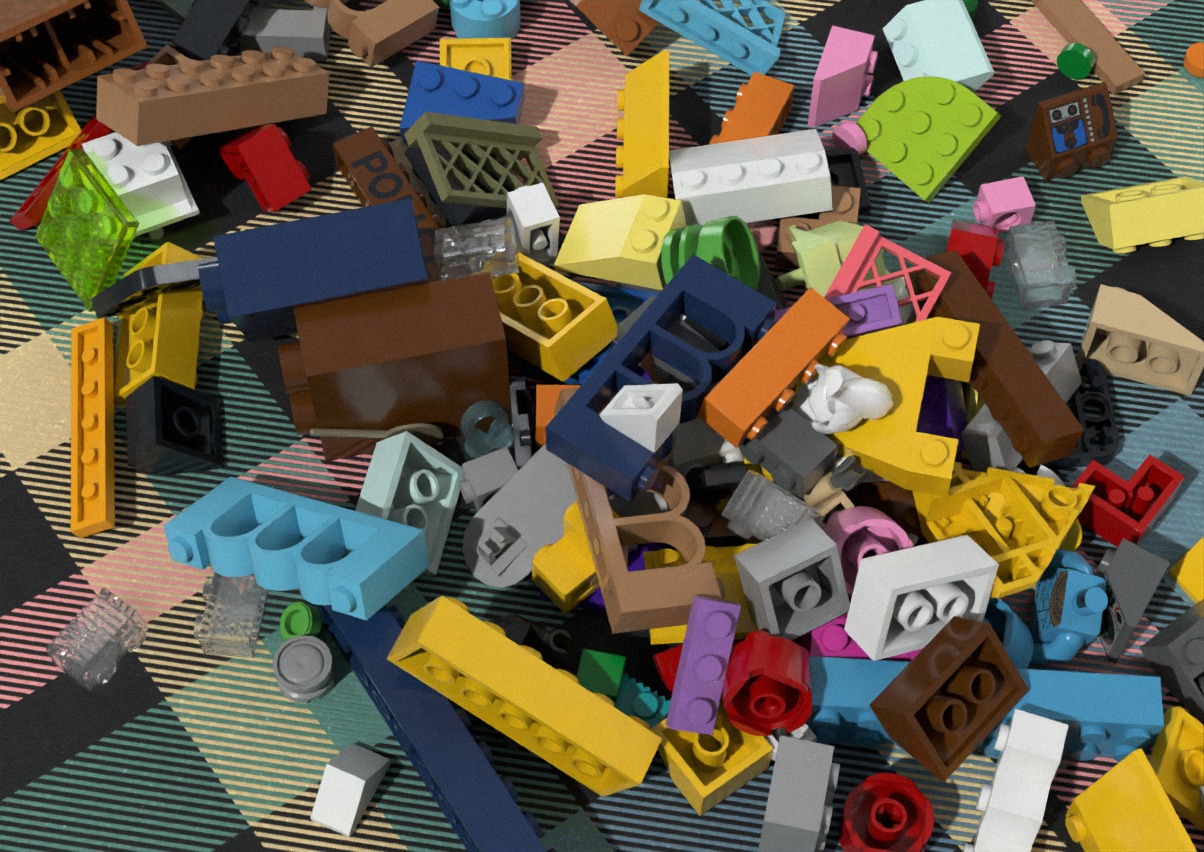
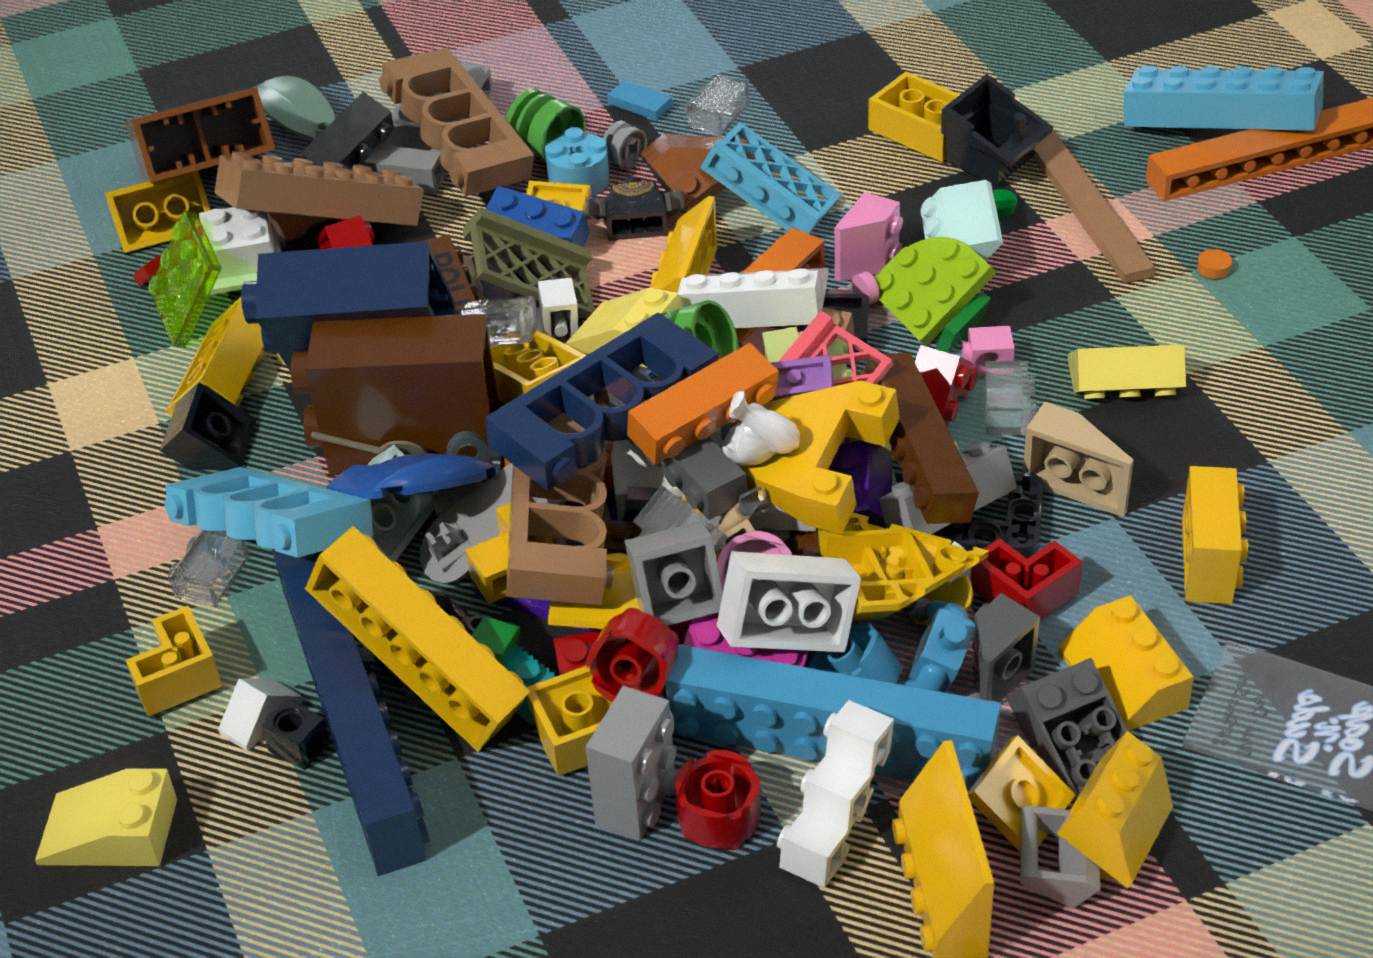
camera: 15 degrees right, 15 degrees down
(92, 428) = (142, 425): light orange plate -> none
(98, 639) = (88, 572): clear brick -> none
(146, 283) = (207, 319): black beam -> none
(250, 752) = (178, 667): none -> yellow brick
(300, 620) = (261, 584): bright green tile -> none
(304, 668) = (252, 617): light grey wheel -> none
(411, 830) = (295, 734): none -> black brick
(450, 478) = (412, 475): none -> blue slope
(570, 61) = (635, 209): none -> black torso
(645, 412) = (573, 413): white slope -> none
(703, 665) = (577, 630): medium lavender plate -> none
(950, 696) = (794, 685): reddish brown slope -> none
(966, 176) = (960, 324): none -> green tile
(1072, 132) = (1067, 298): reddish brown slope -> none
(1075, 61) = (1092, 251): green tile -> none

